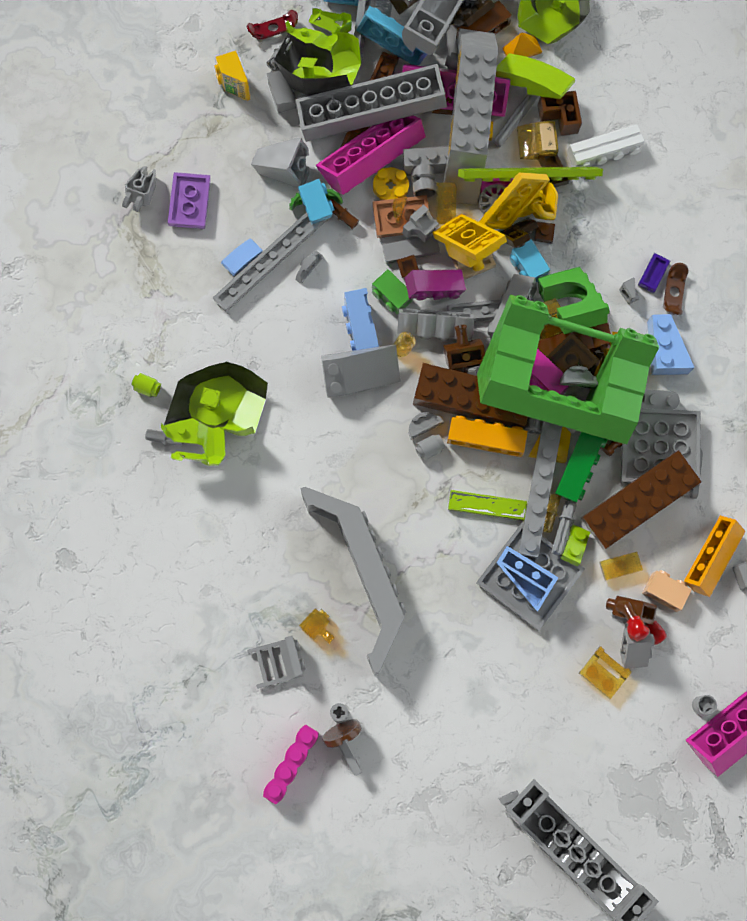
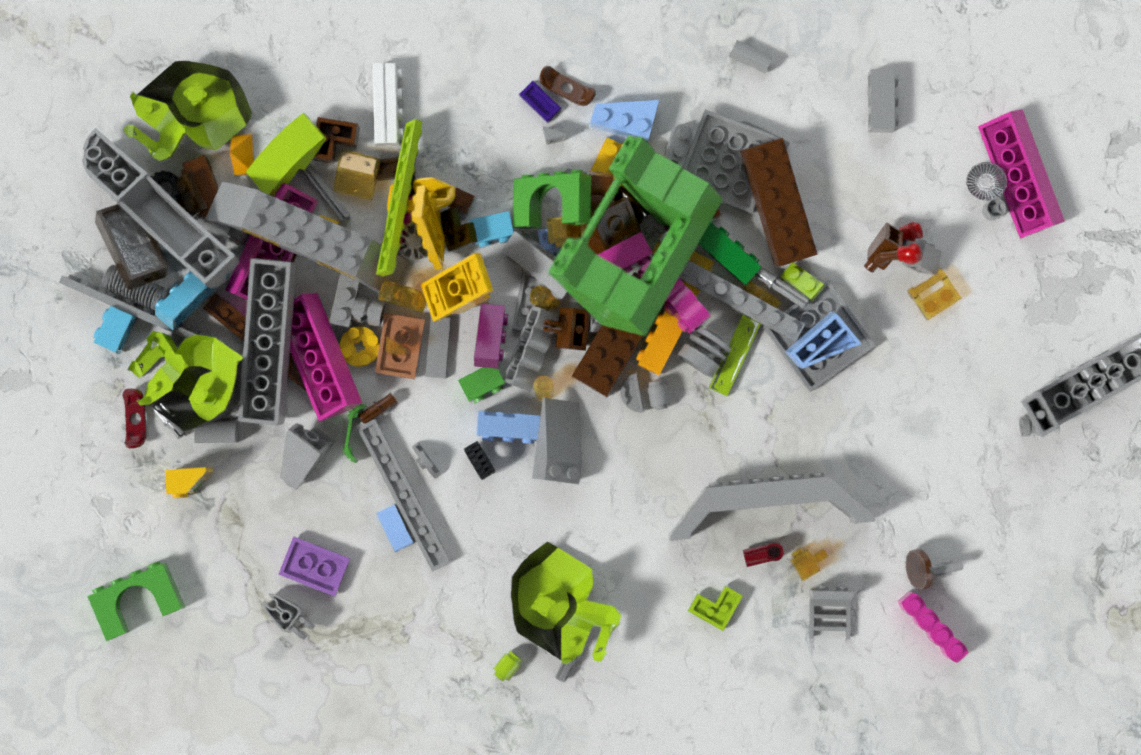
camera: 65 degrees left, 10 degrees up
(111, 46) = (107, 601): none -> bright green arch
(246, 556) = (716, 613): none -> lime plate
(312, 582) = (760, 554): none -> dark red piece
(315, 200) = (362, 434): medium azure piece -> none
(322, 307) = (479, 460): none -> black tyre
(334, 708) = (903, 563): light grey bush -> none
(407, 264) = (458, 357): reddish brown plate -> none
(420, 224) = (420, 330): light grey brick -> none
(482, 320) = (543, 298): none -> clear yellow brick
(482, 473) = (704, 351): none -> light grey wheel
(518, 438) = (682, 305): none -> dark pink brick
(578, 377) = (638, 224): light grey plate -> none
(621, 566) = (835, 243): clear yellow plate -> none
(667, 590) = (874, 206): light nougat brick -> none
(714, 556) = (854, 147): light orange brick -> none
(735, 688) = (990, 173): none -> clear dish

